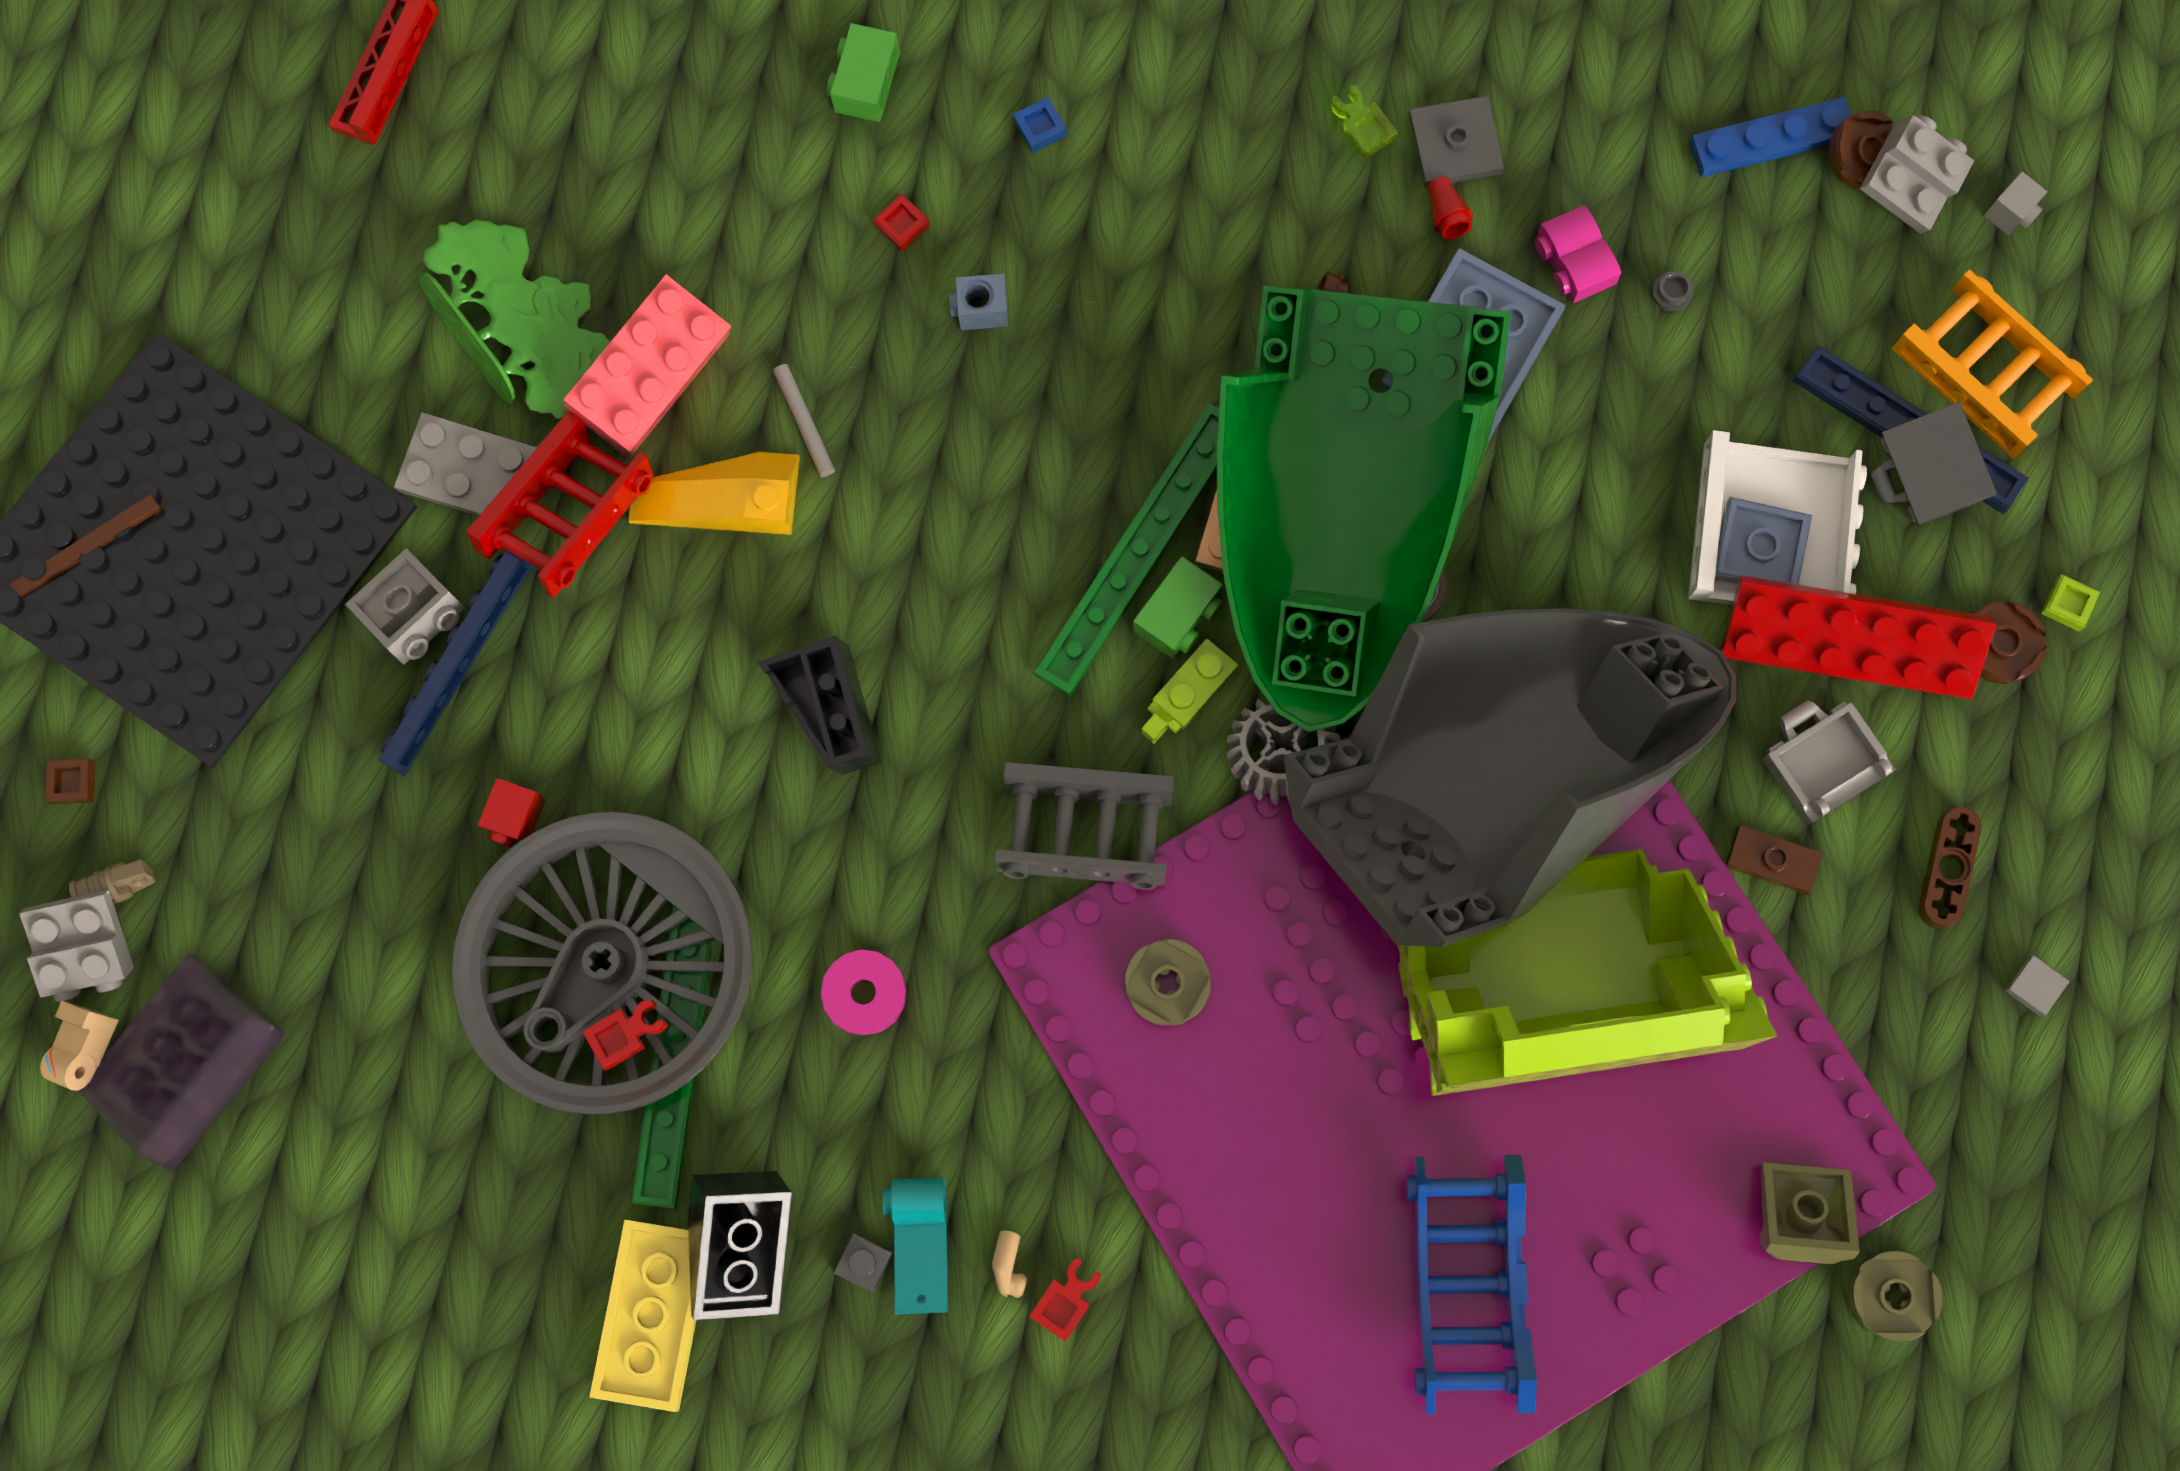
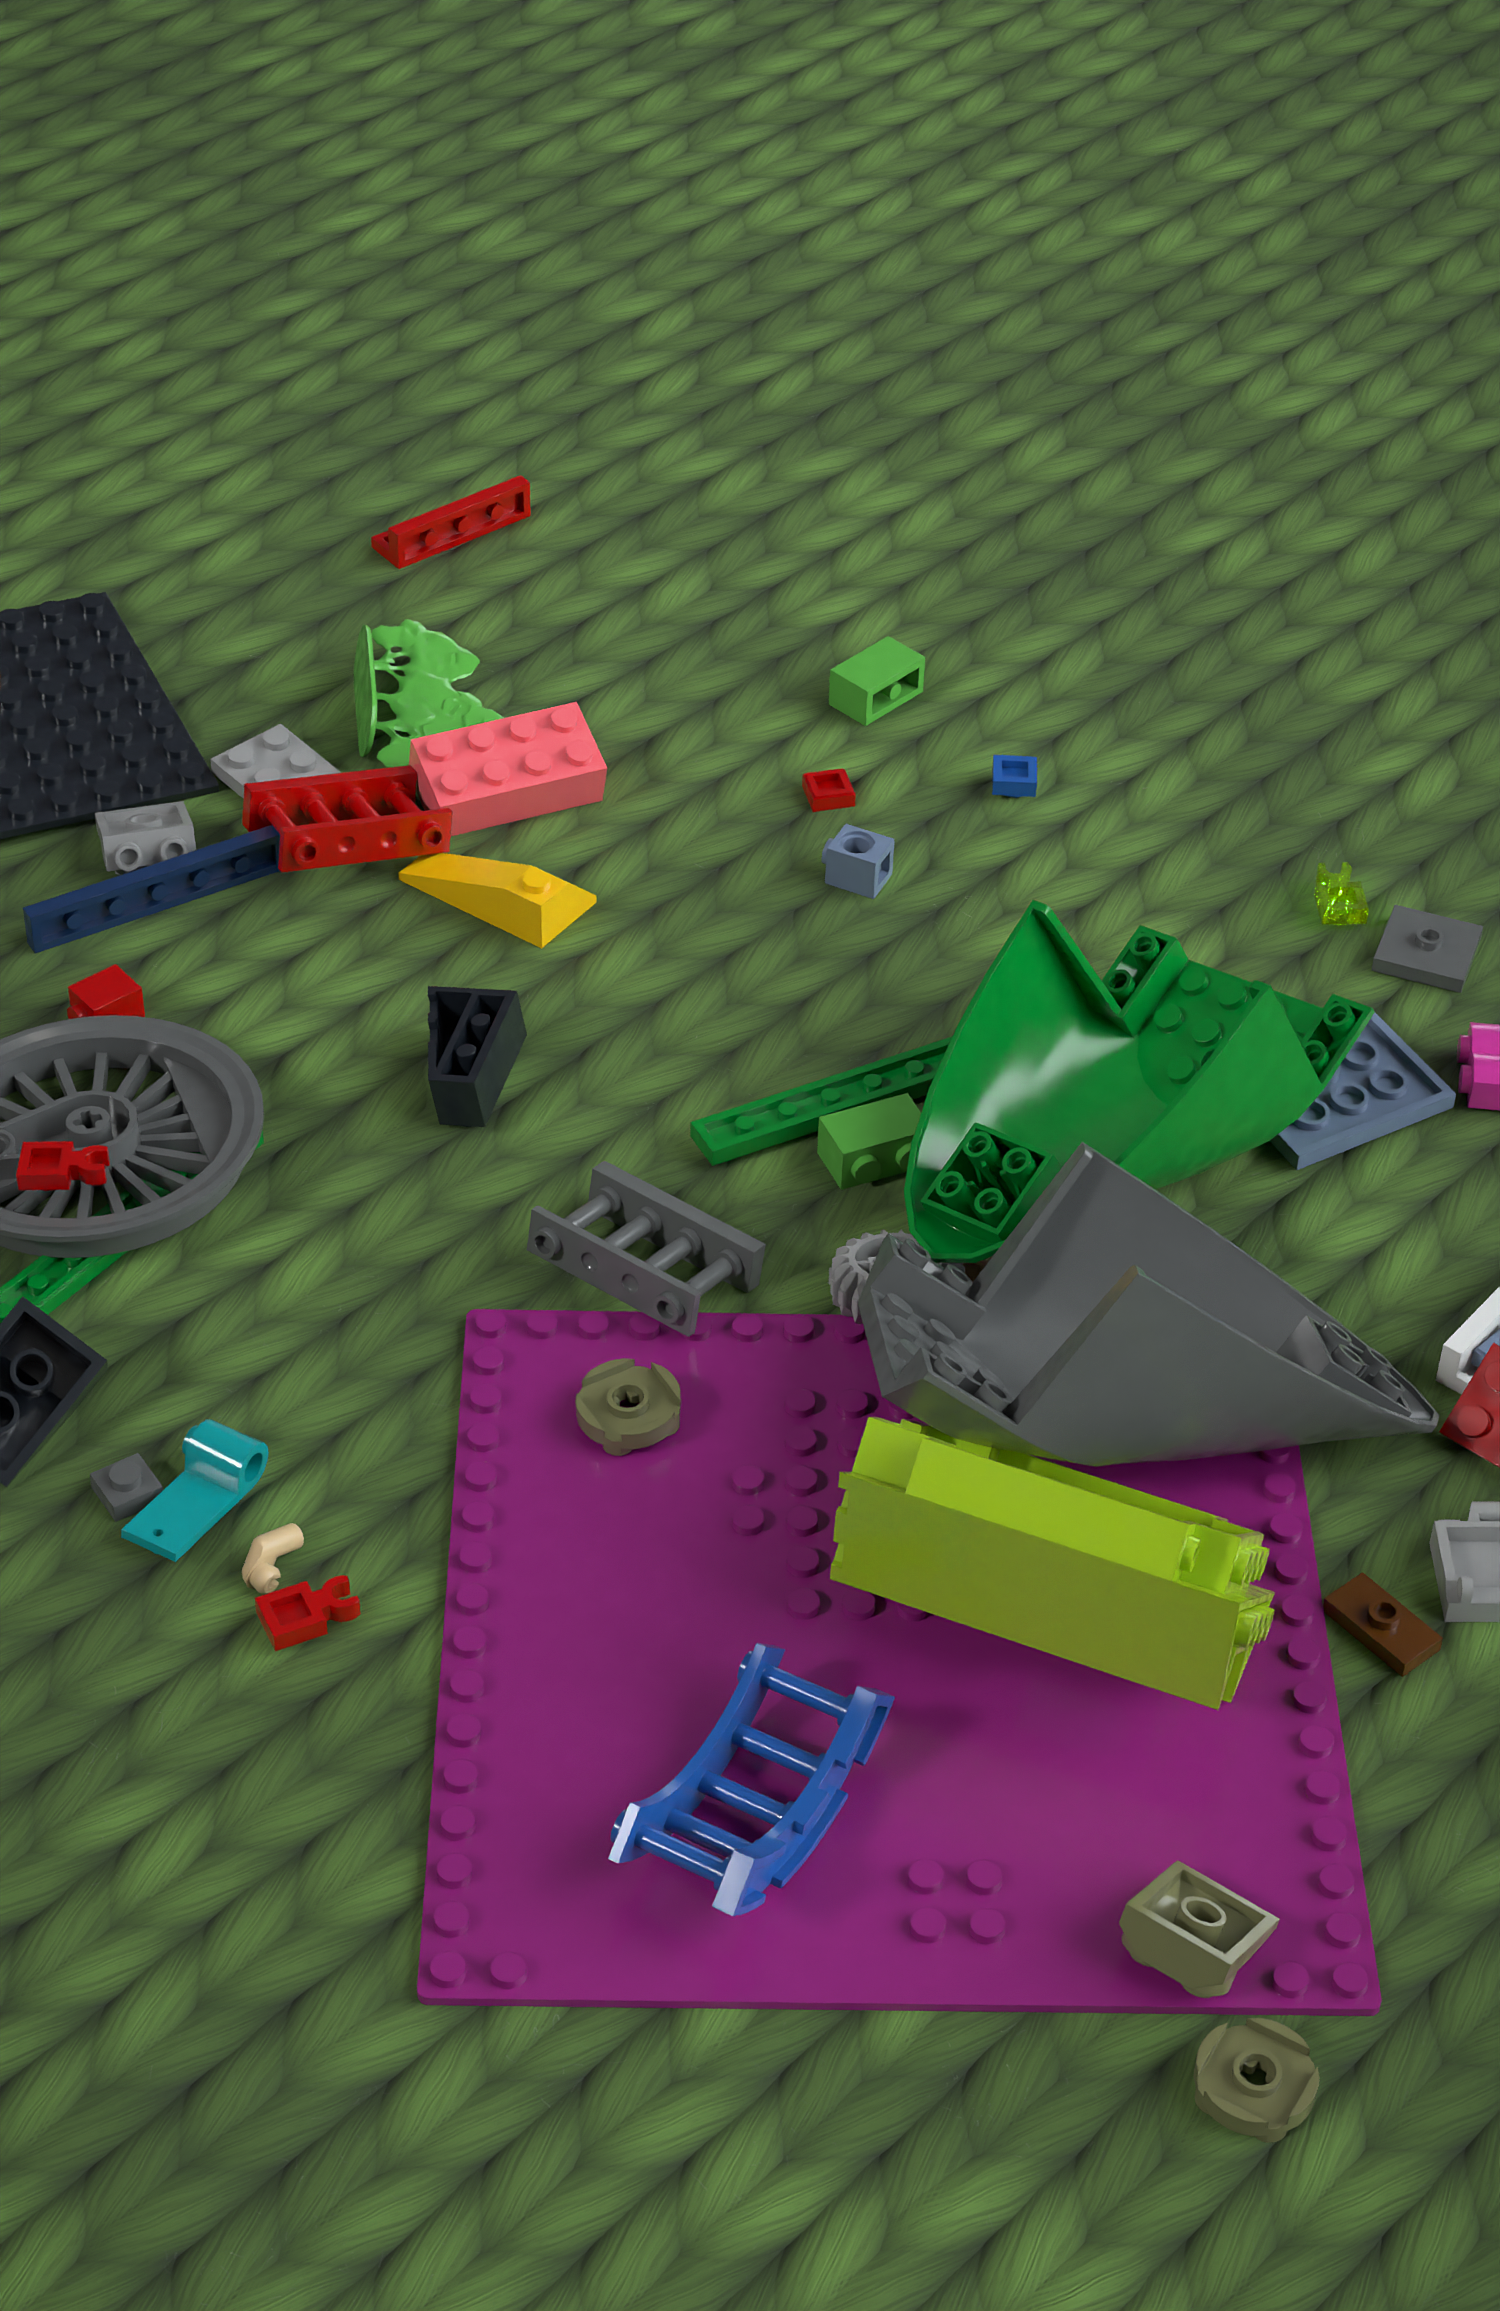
camera: 25 degrees right, 35 degrees down
(804, 420) = (621, 876): light grey bar -> none
(842, 978) = (316, 1263): dark pink tile -> none
(1188, 690) = (834, 1213): lime hinge -> none
(1449, 211) = (1382, 986): red cone -> none

